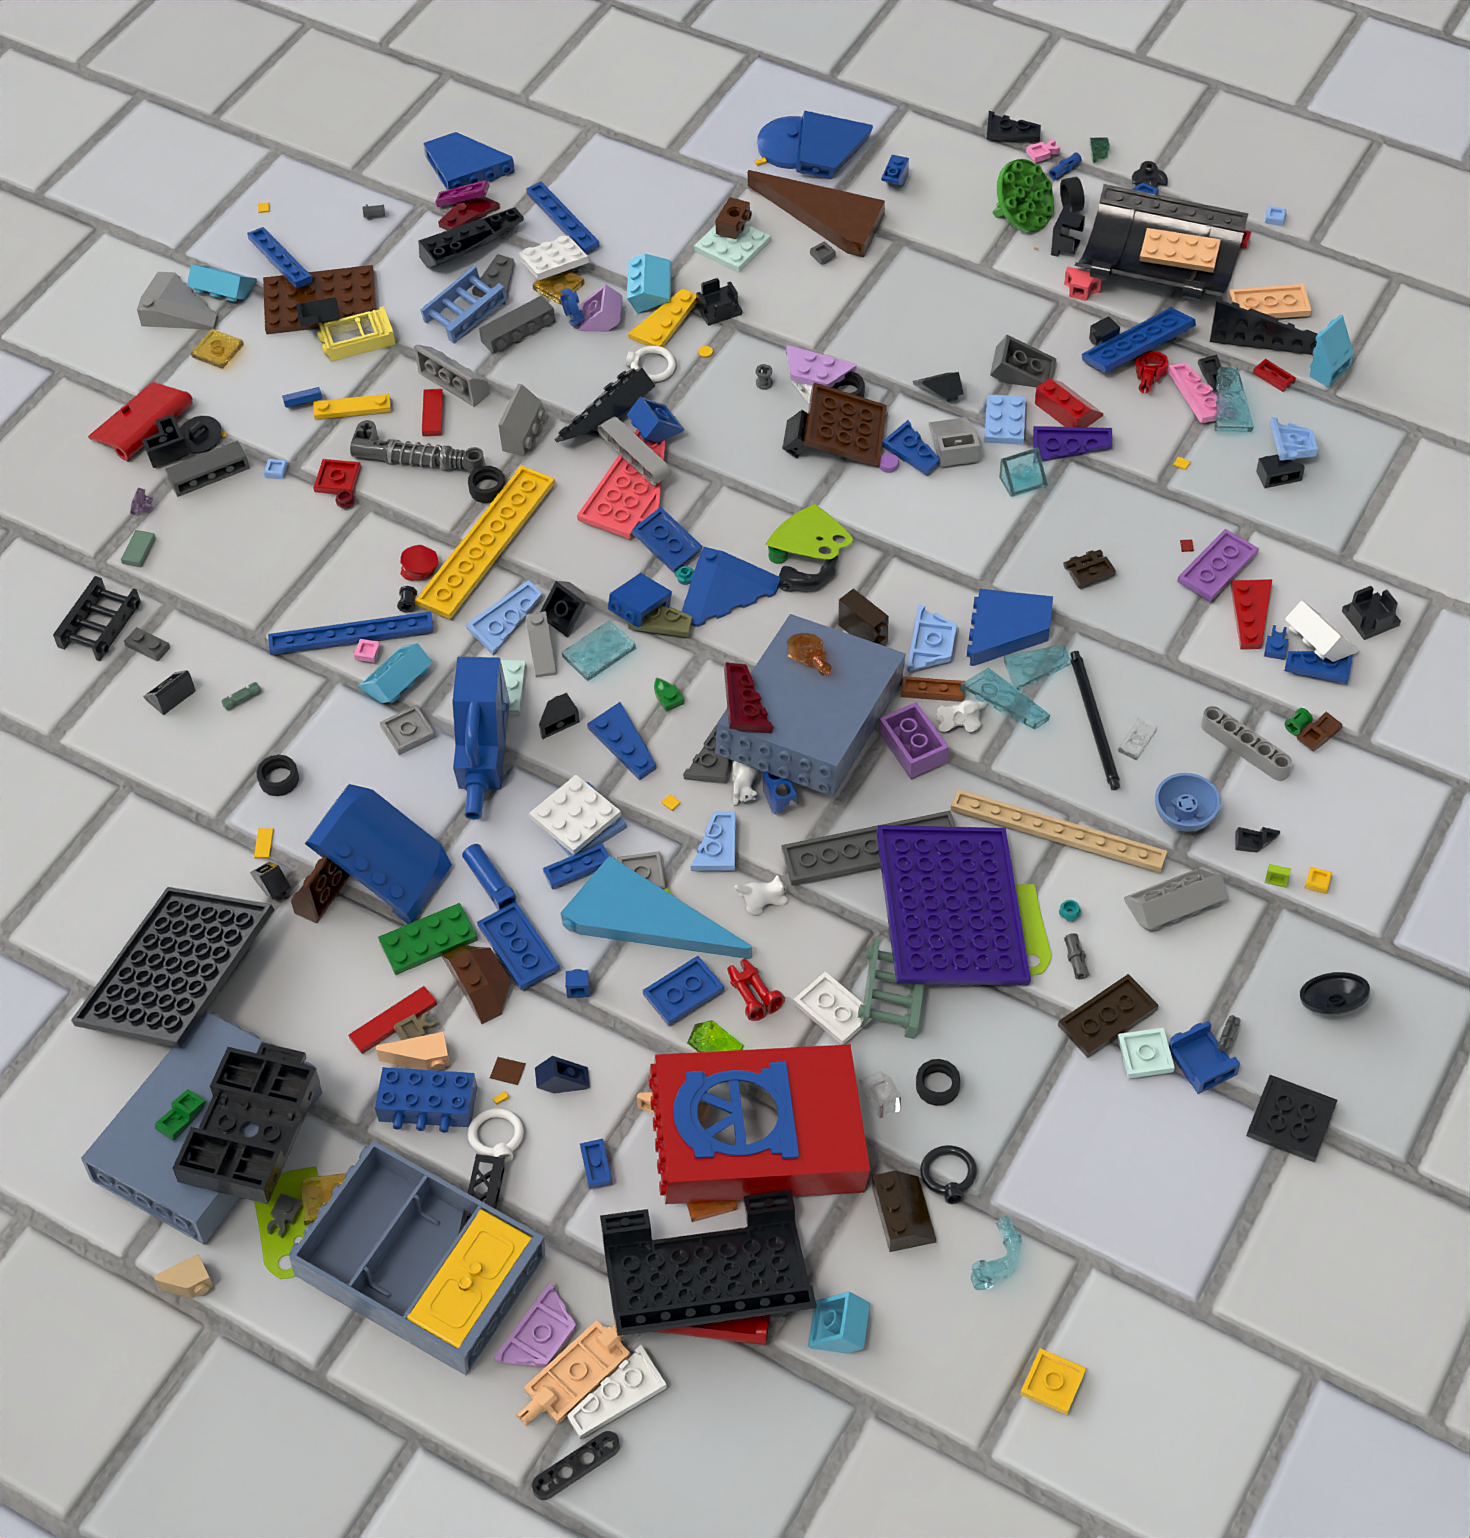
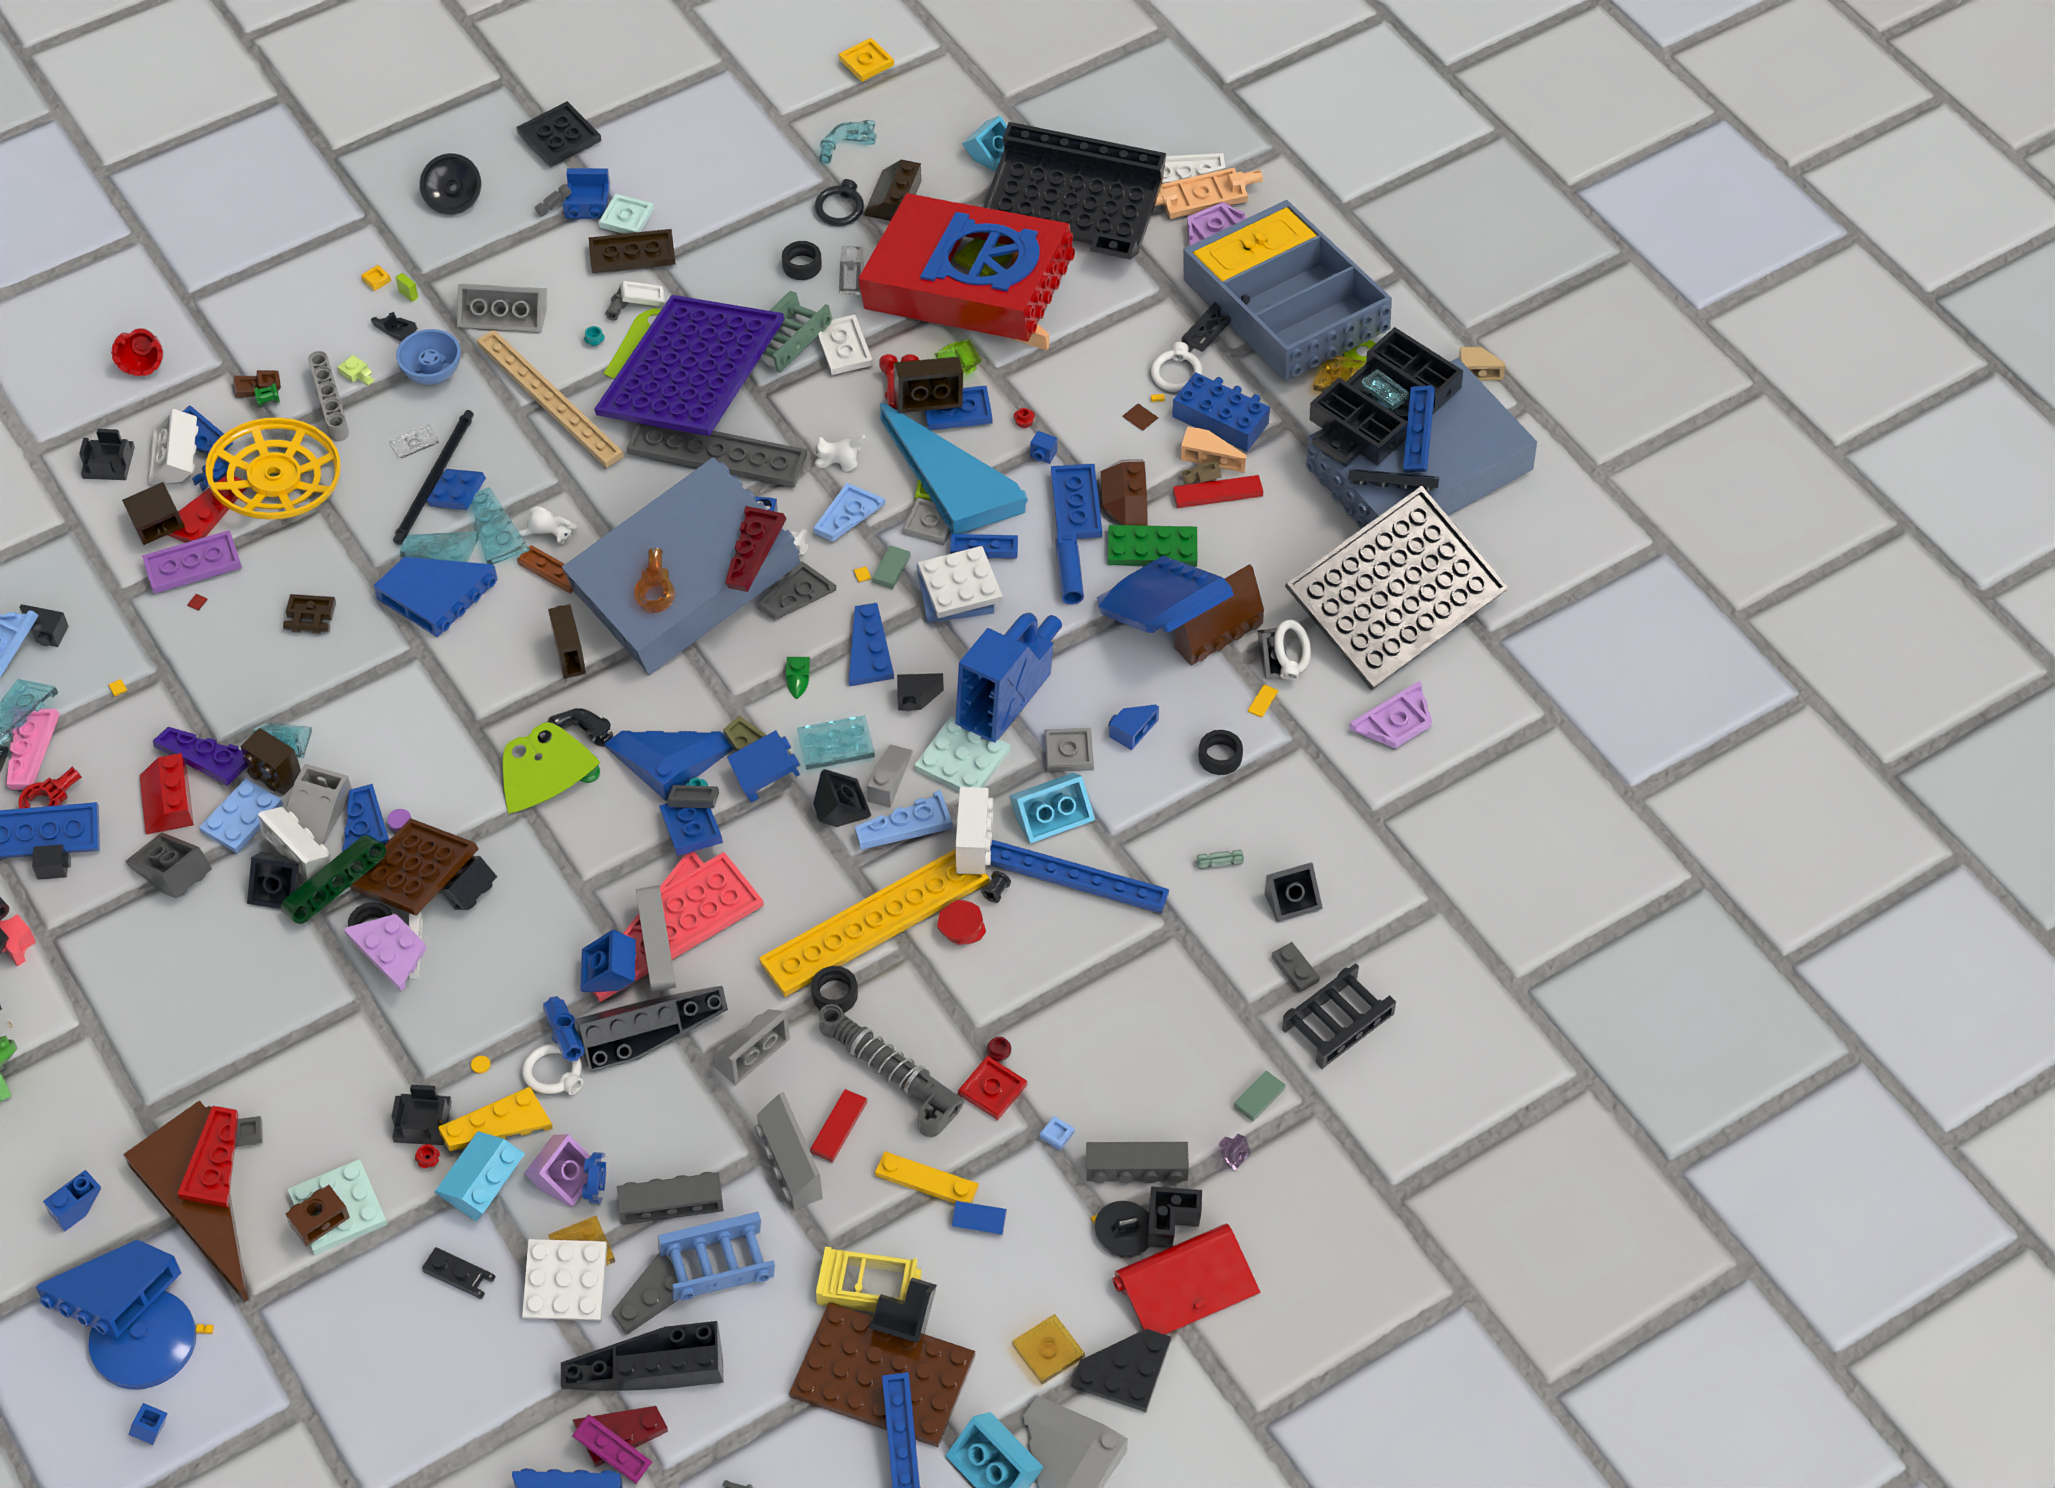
camera: 155 degrees left, 0 degrees up
(136, 870) = (1396, 718): none -> lavender wing
(160, 357) = (1125, 1370): none -> black plate
(183, 1112) = (1445, 436): green slope -> none
(199, 1096) = (1419, 429): none -> blue plate
(208, 1045) = (1383, 479): none -> black plate
(246, 865) = (1291, 669): none -> white piece
(249, 1124) = (1385, 389): none -> clear light blue plate
(362, 764) = (1133, 724): none -> blue slope
(367, 650) = (1067, 847): bright pink plate -> none
(438, 605) = (974, 830): none -> white brick
(561, 1076) = (1100, 383): dark blue slope -> none
(562, 217) = (510, 1352): blue plate -> none
(573, 1461) = (1234, 143): black beam -> none
(596, 1163) = (1108, 315): blue plate -> none
(616, 1018) = (1024, 417): none -> red plate
(627, 242) = (456, 1272): none -> black hinge
(648, 815) = (891, 567): none -> sand green tile
(667, 385) = (563, 1029): none -> blue piece
(678, 556) = (693, 796): none -> dark grey tile
(695, 285) = (424, 1151): none -> red plate
(710, 965) = (928, 384): none -> dark brown brick
(748, 103) = (148, 1423): none -> blue plate
(764, 376) = (443, 982): dark grey bush -> none
(822, 212) = (212, 1162): none -> red wing
(895, 398) = (322, 881): none -> dark green beam
(913, 740) = (607, 507): medium lavender brick -> none
(931, 640) = (515, 609): light blue wing -> none
(942, 398) = (293, 841): none -> white slope
(1007, 440) = (271, 761): none -> dark brown brick
(1059, 969) = (642, 293): none -> white tile
(1064, 713) = (456, 489): none -> blue plate
(1227, 645) = (274, 462): none -> yellow dish
(1250, 782) = (355, 369): none -> yellowish green plate
(1282, 578) = (153, 513): none -> dark brown brick
(1441, 702) = (137, 352): none -> red hair

